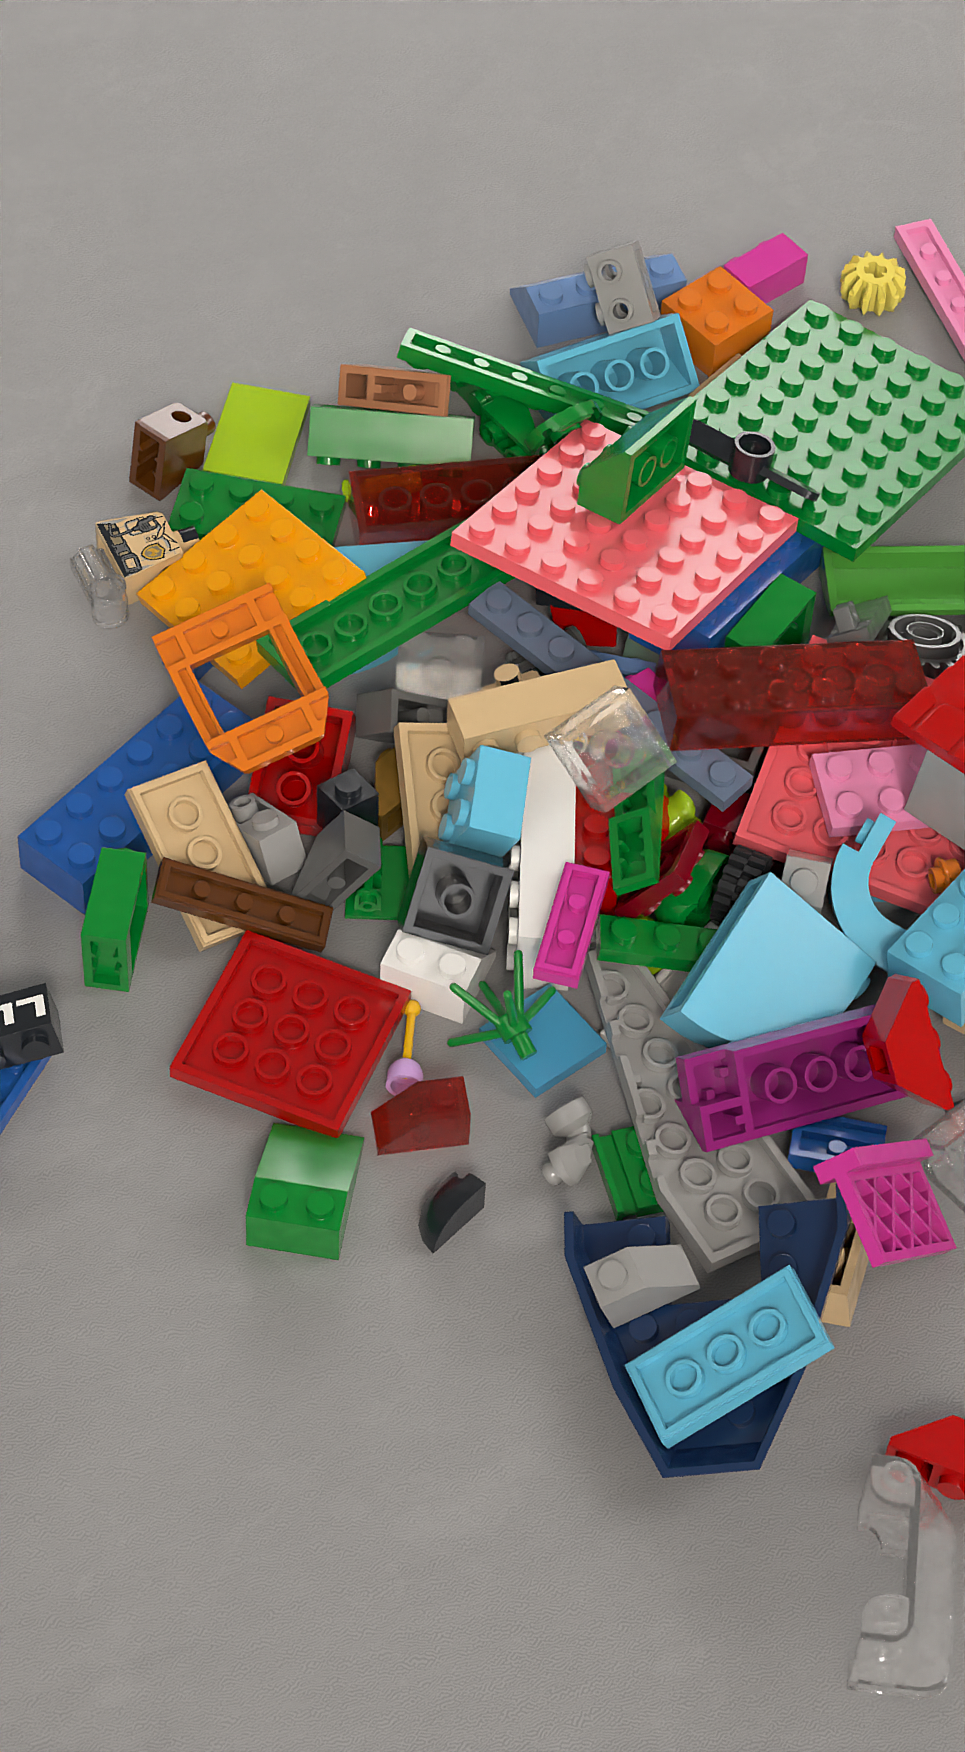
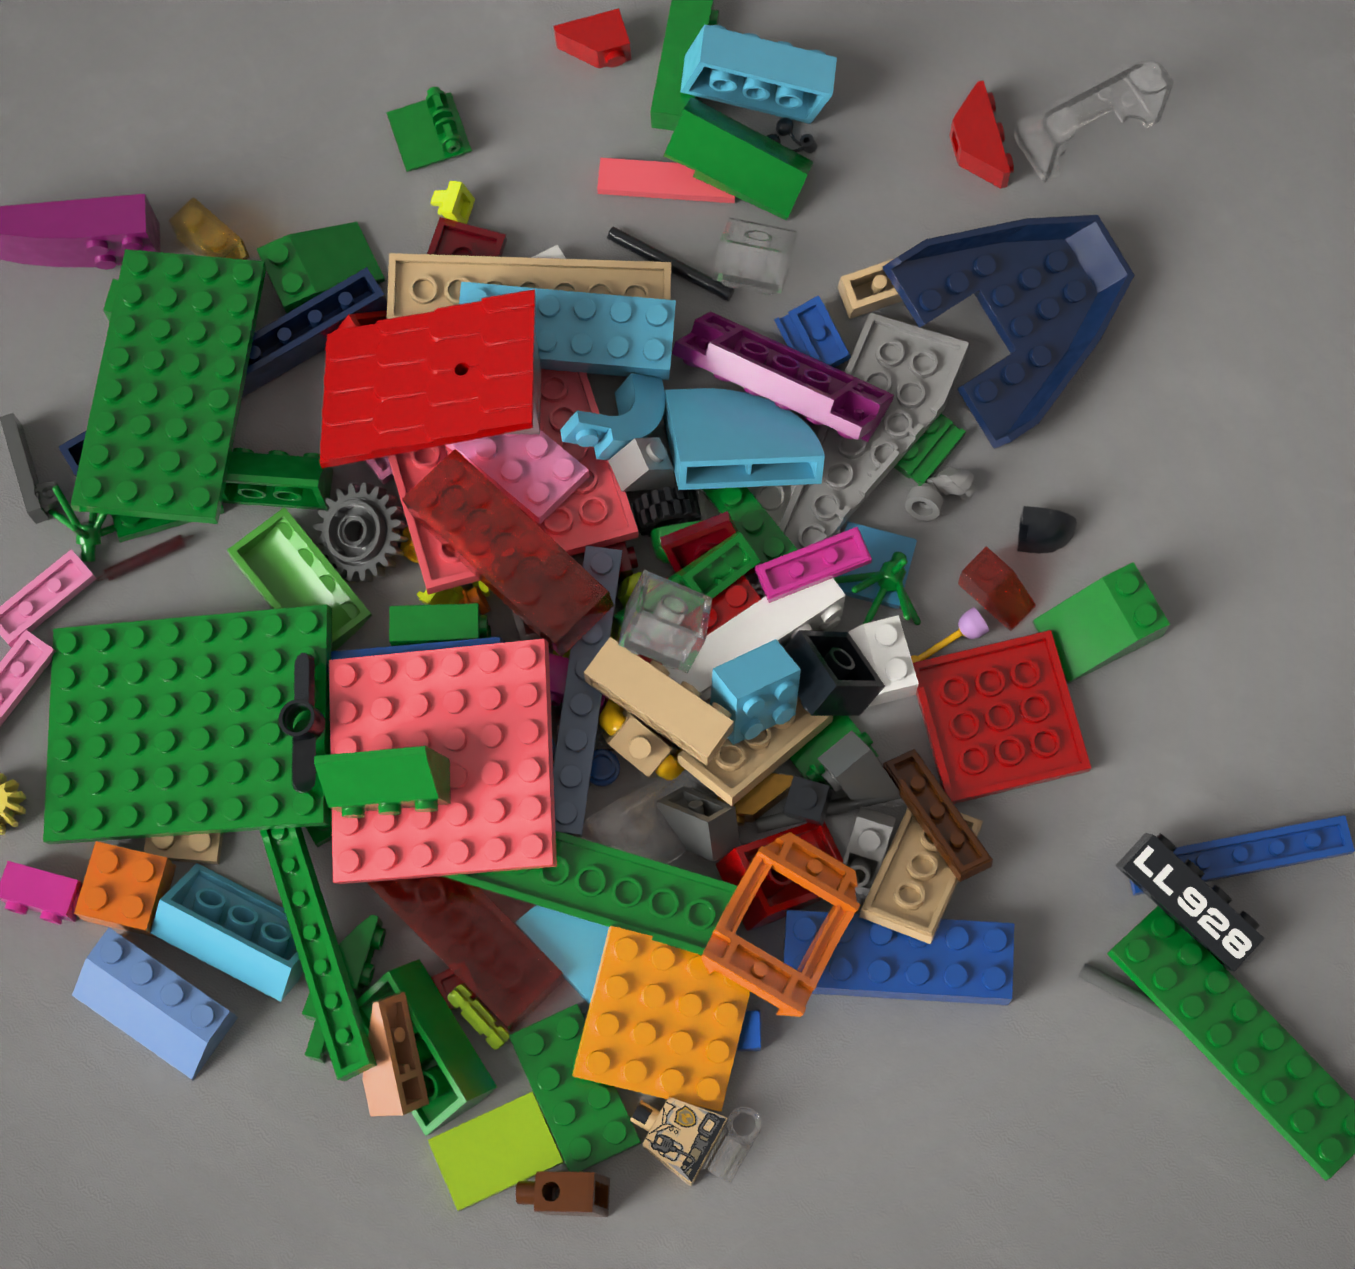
camera: 120 degrees left, 20 degrees up
(115, 919) = (1018, 883): green window -> none
(560, 425) = (353, 893): green tile -> none
(628, 286) = (170, 952): light grey brick -> none
(640, 1280) = (1026, 362): light grey slope -> none
(729, 1356) = (1041, 274): medium azure tile -> none
(859, 621) = (393, 563): dark grey hinge -> none
(886, 1170) = (861, 254): dark pink fence -> none
(905, 1044) = (727, 322): red slope -> none
(943, 874) = (567, 383): orange plate -> none

